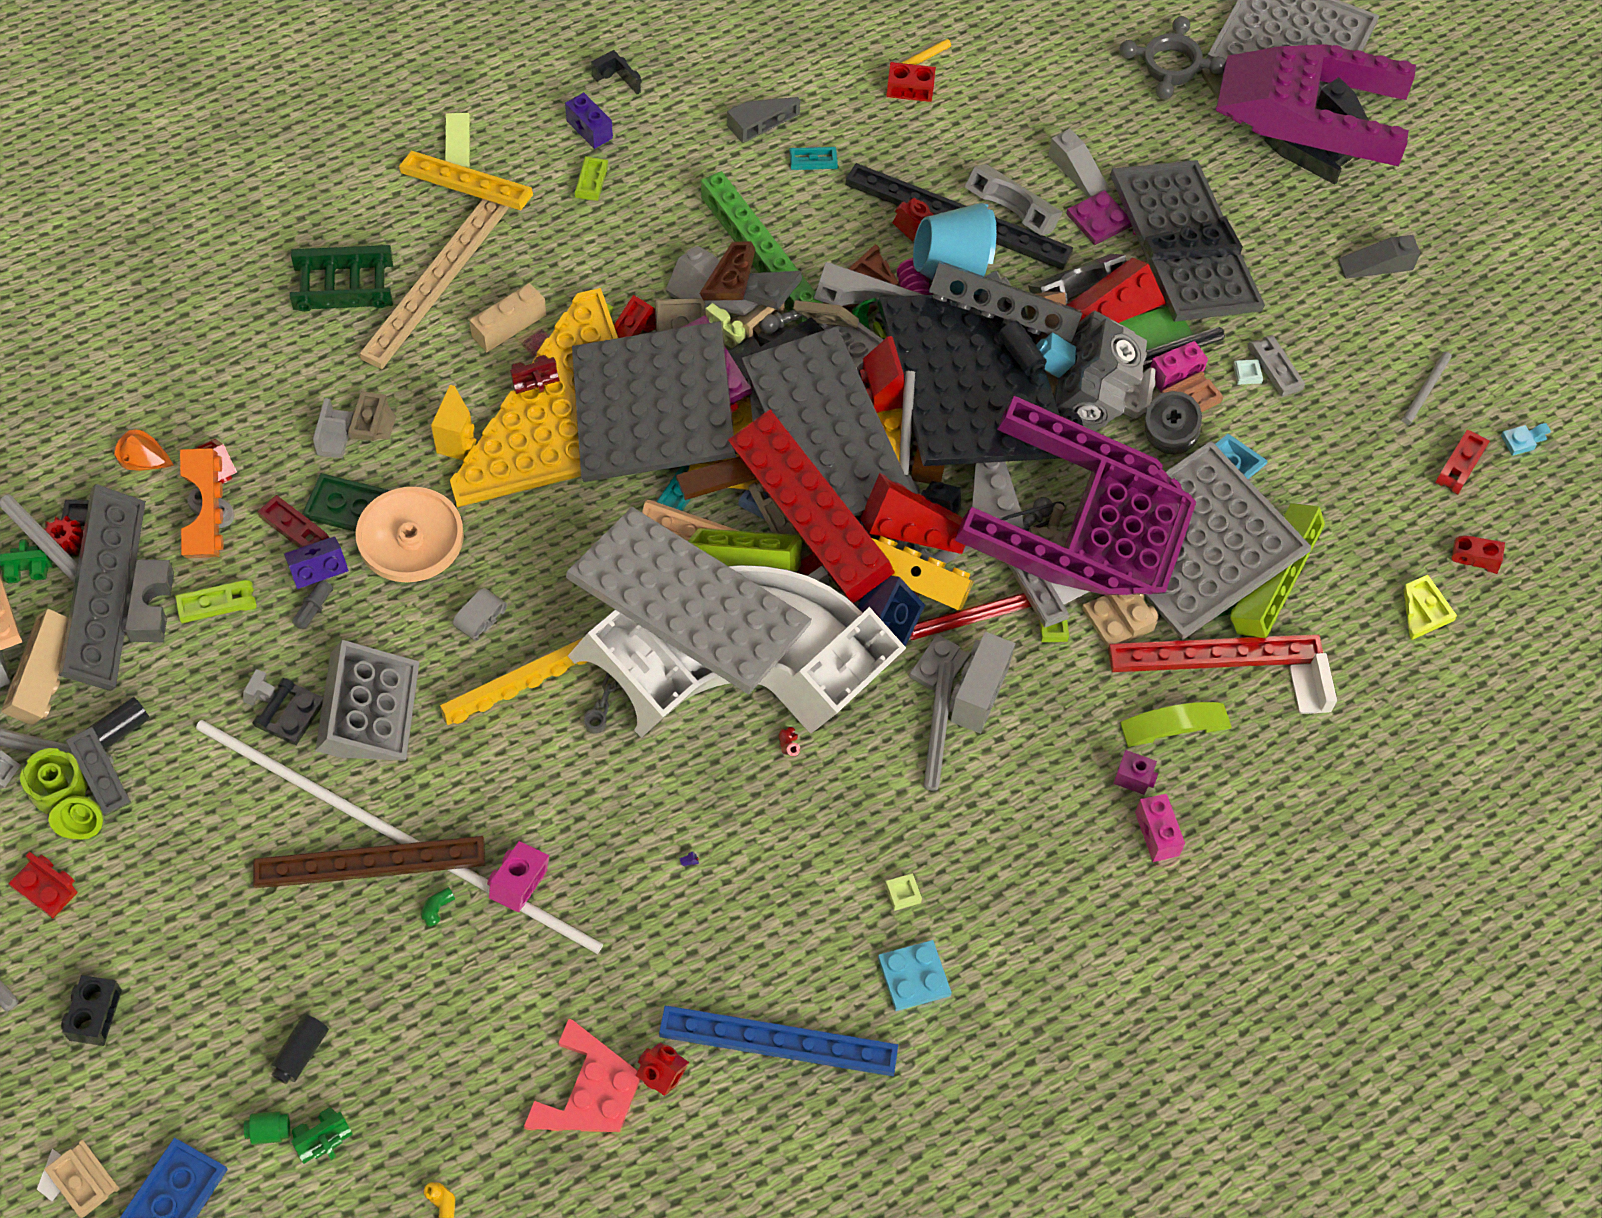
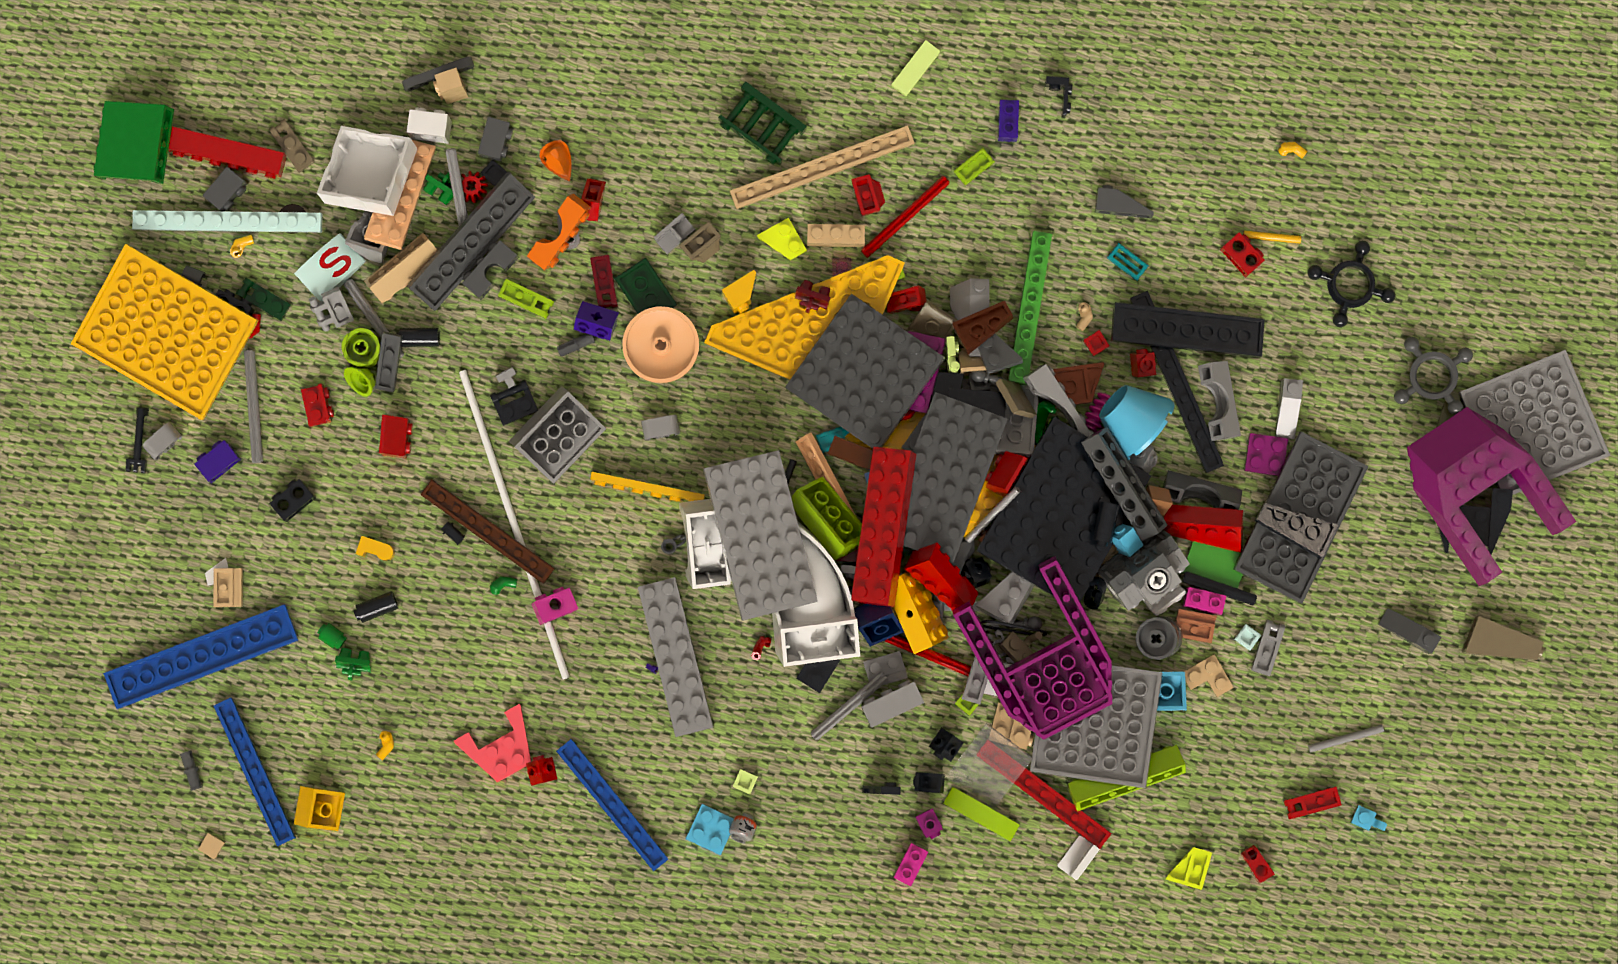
camera: 45 degrees right, 25 degrees up
(52, 478) = (495, 139): none -> dark grey brick
(170, 842) = (395, 436): none -> red slope
(244, 983) = (382, 550): none -> yellow leg
(328, 896) = (452, 532): none -> black pin
(457, 360) = (783, 239): none -> neon yellow wing
(466, 180) = (892, 109): yellow plate -> none
(505, 267) = (868, 194): none -> red slope
(563, 262) = (905, 216): none -> red axle
(707, 823) = (675, 657): none -> light grey brick
(818, 223) = (1086, 316): none -> tan arm
(852, 236) = (1096, 343): none -> red plate
(871, 719) = (817, 674): none -> black plate
(924, 165) = (1187, 330): none -> black plate
(948, 941) = (743, 828): none -> light grey head
(1023, 58) = (1340, 319): none -> black piece
(1059, 772) = (888, 788): none -> black wing
(1074, 681) = (945, 745): none -> black brick
(1095, 733) = (929, 782): none -> black bracket
(1137, 666) = (989, 767): none -> clear piece
(1250, 424) = (1209, 671): none -> tan plate
(1460, 210) = (1496, 640): none -> dark tan slope

